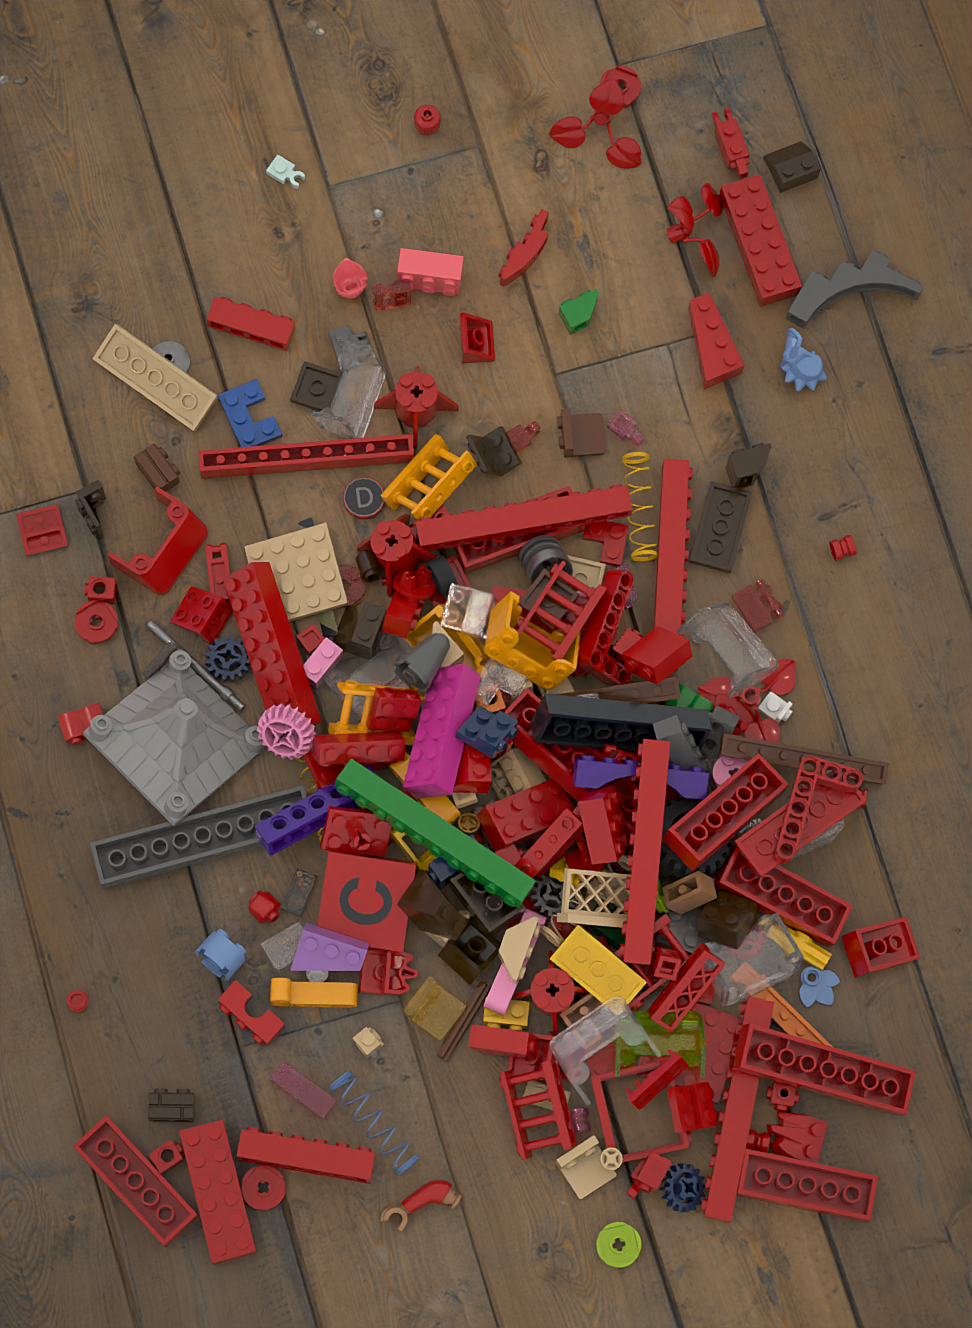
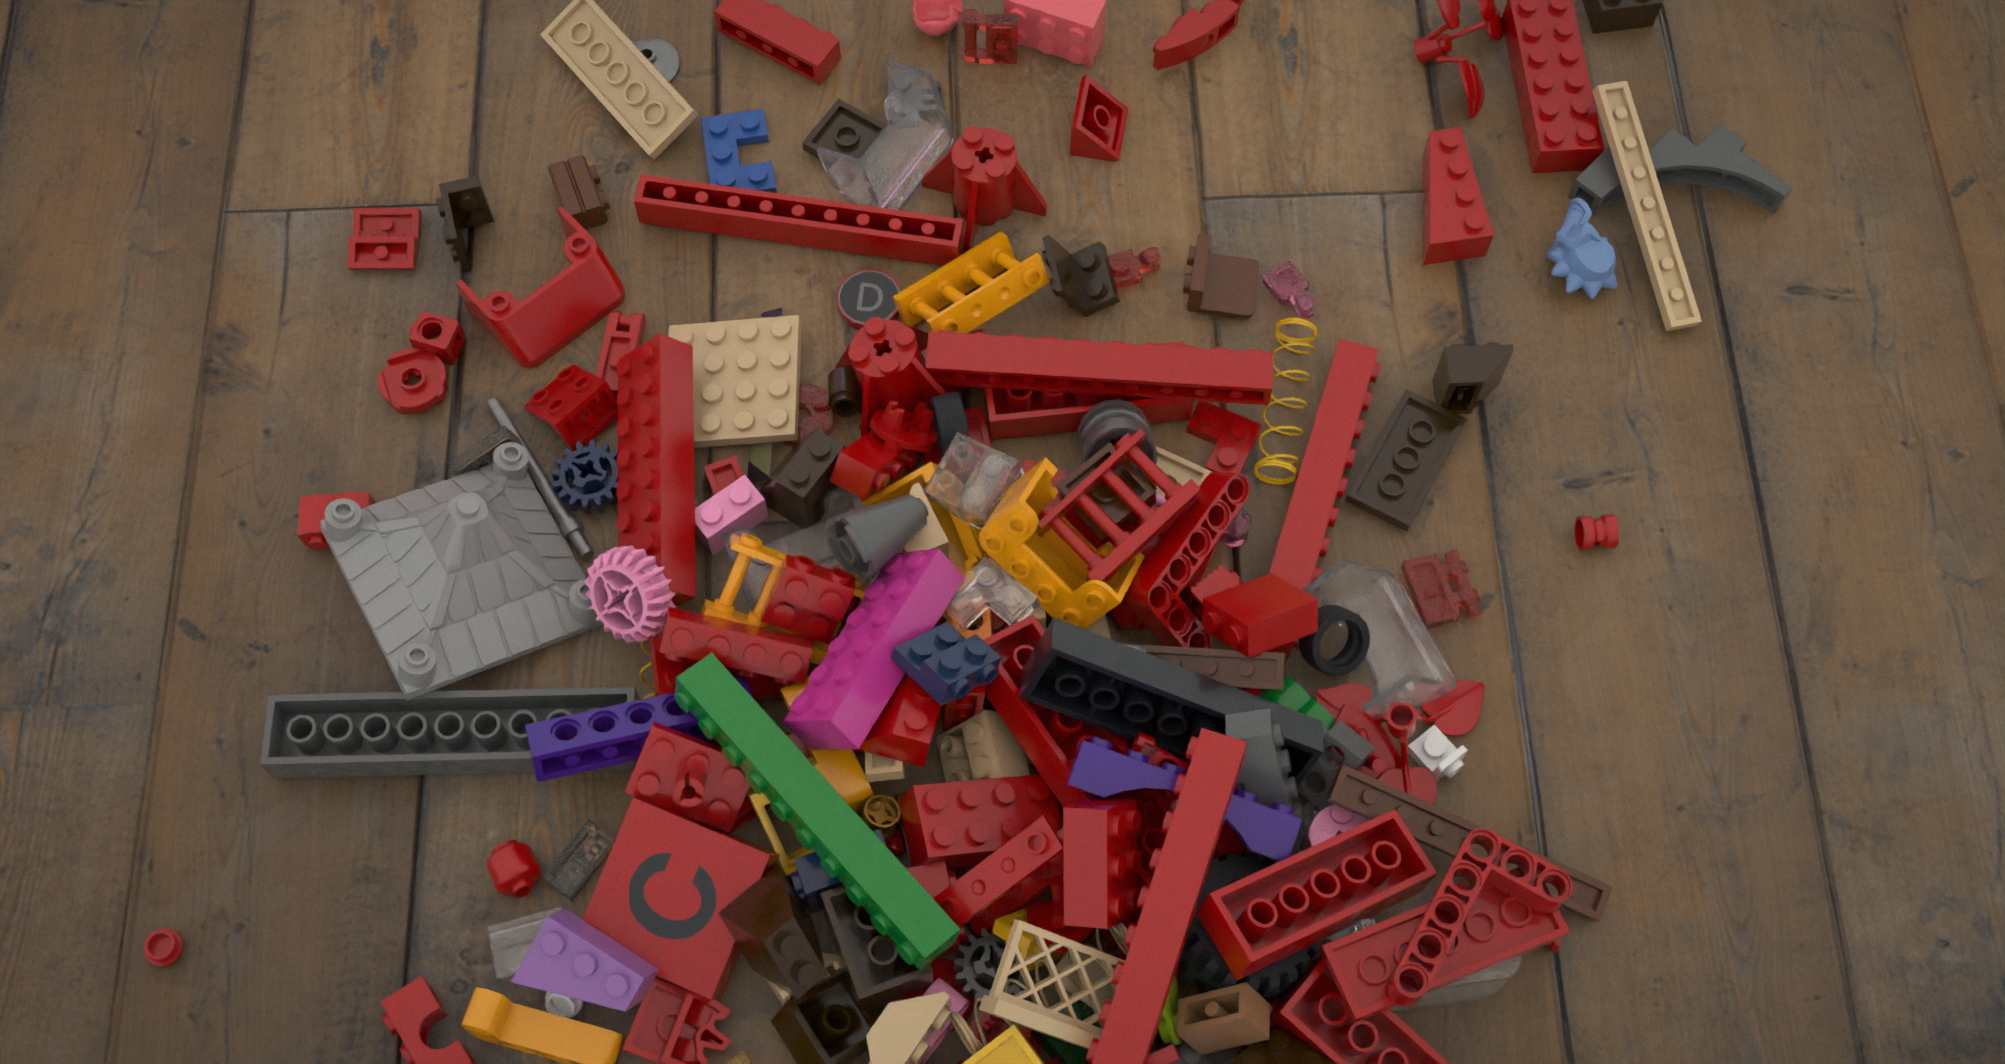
camera: 20 degrees right, 10 degrees down
(221, 954) = (414, 929): medium blue brick -> none
(578, 312) = (1259, 118): green slope -> none
(714, 659) = (1353, 651): none -> black tyre
(834, 320) = (1646, 206): none -> tan plate

